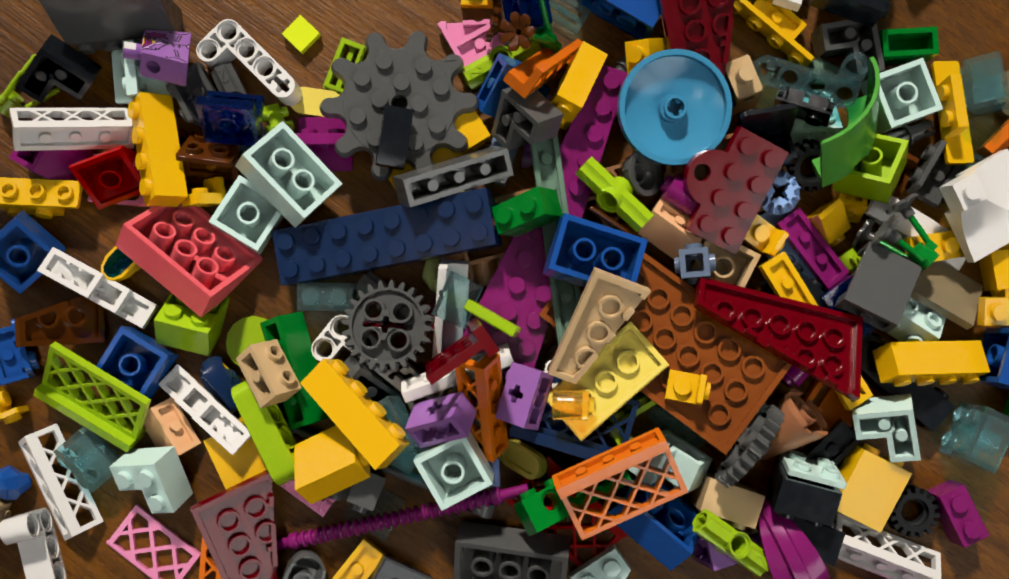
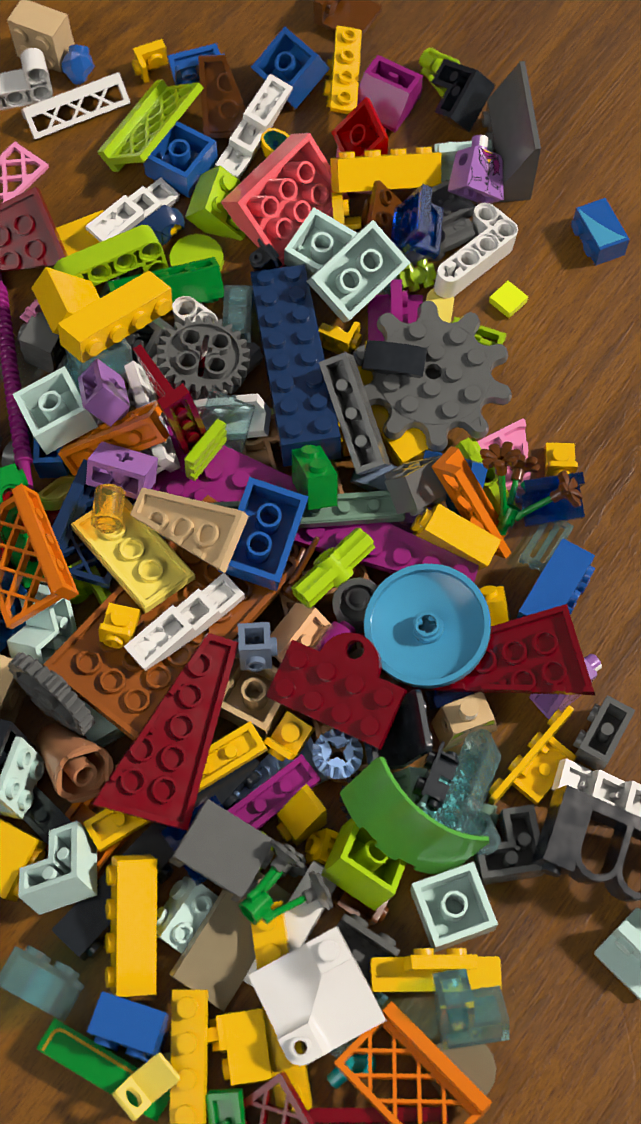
camera: 90 degrees right, 20 degrees down
(73, 131) = (401, 101): white fence -> none
(87, 458) = (93, 123): clear light blue brick -> none
(157, 474) = (72, 174): light aqua brick -> none
(170, 427) = (114, 187): light nougat panel -> none
(267, 270) = (264, 257): none -> black hinge
(268, 373) = (163, 252): tan brick -> none
(350, 201) = (338, 341): none -> yellow bracket
(683, 330) = (185, 622): none -> white slope
(909, 44) = (514, 913): green brick -> none
(914, 132) = (408, 920): dark grey axle -> none

